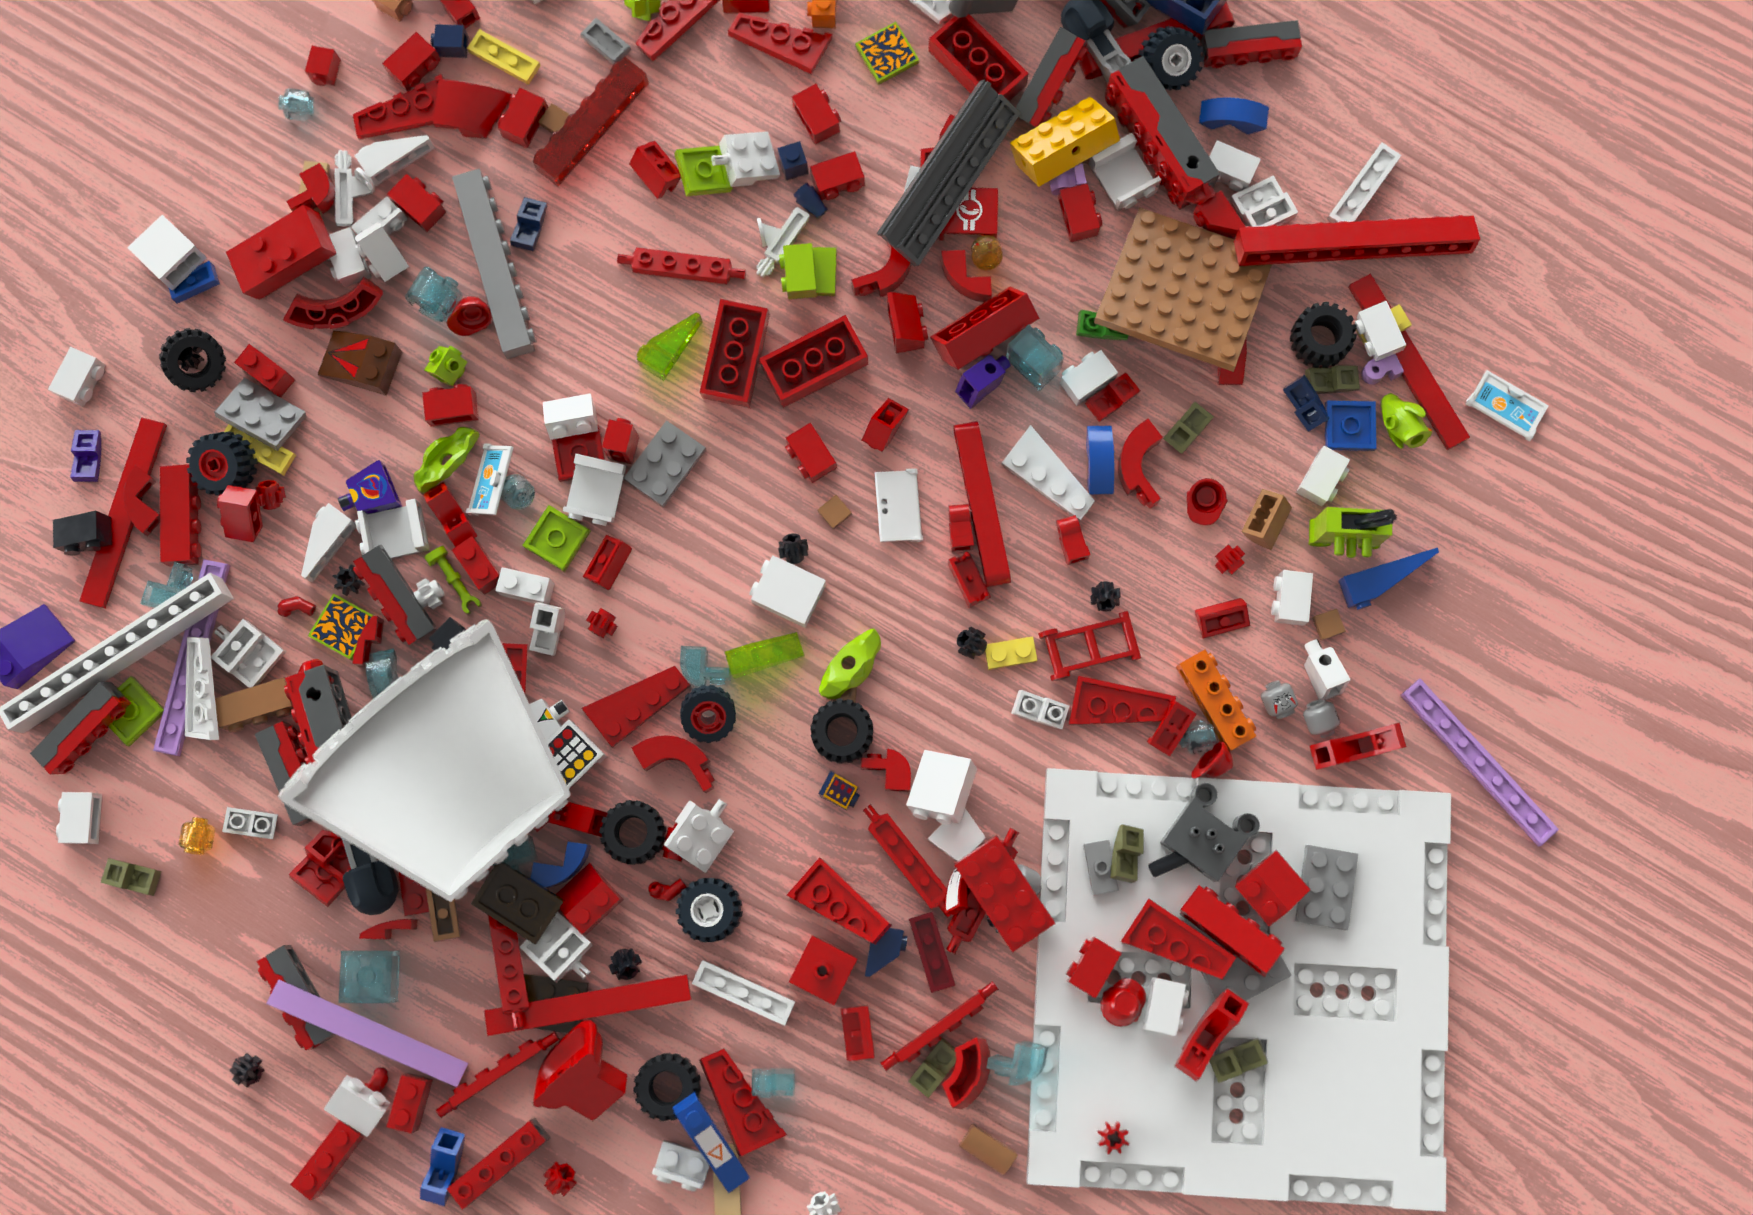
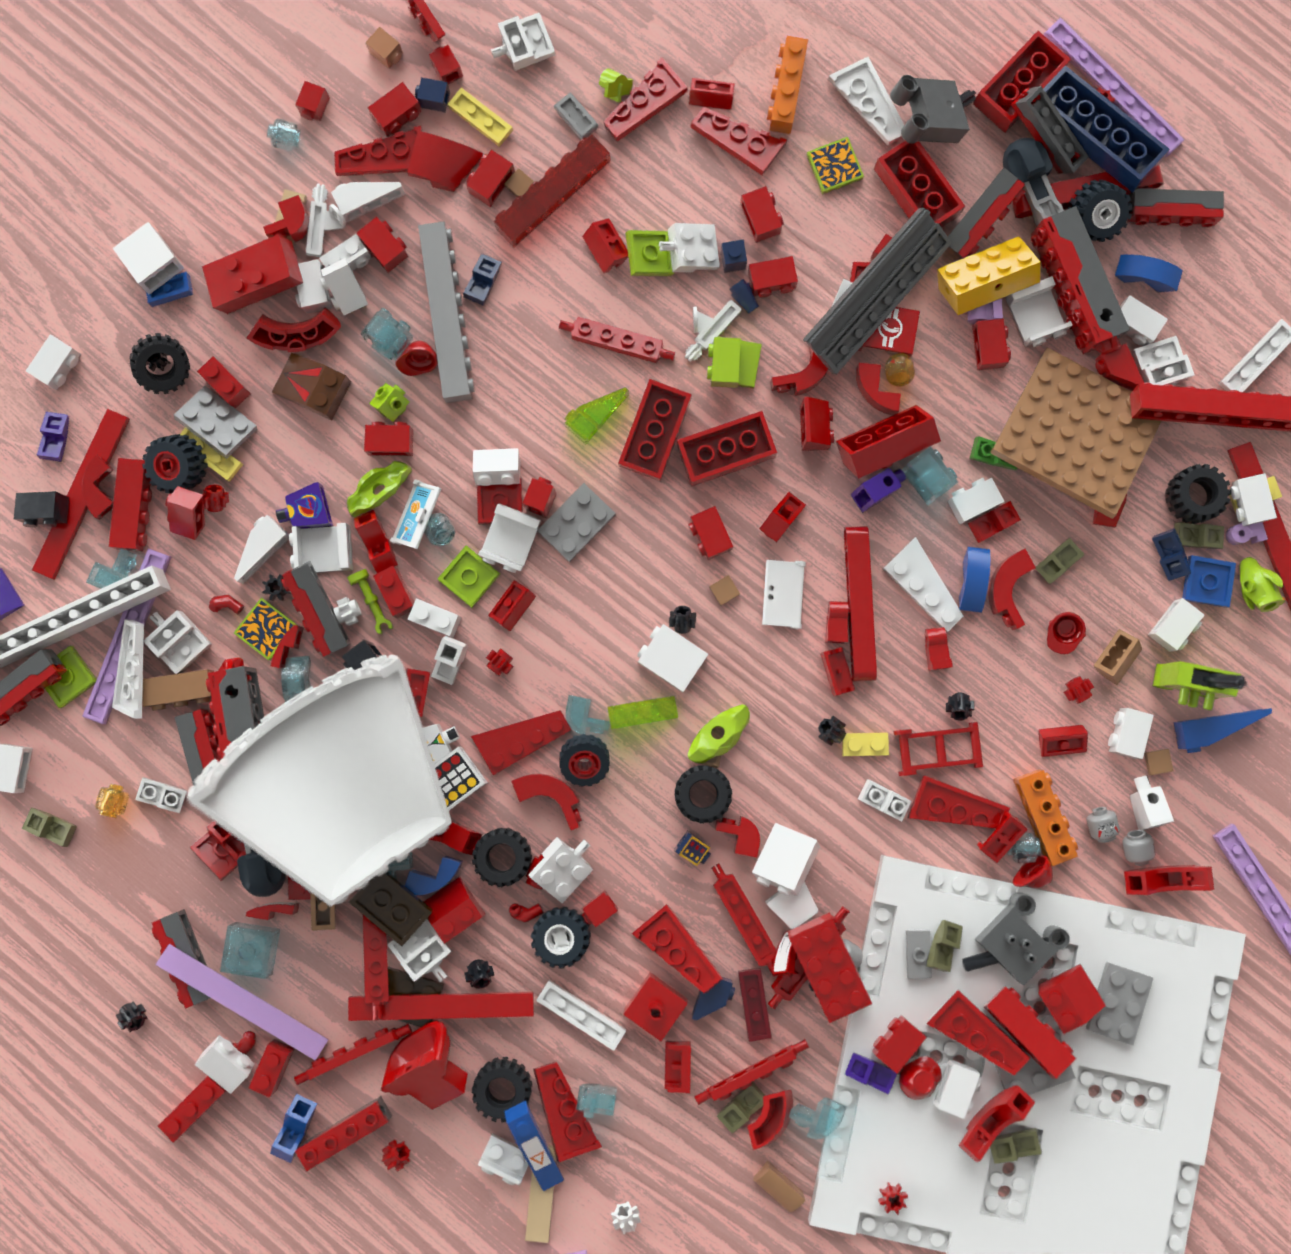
camera: 10 degrees right, 5 degrees up
(746, 873) = (599, 909): none -> red brick
(1069, 1004) = (870, 1073): none -> dark purple slope

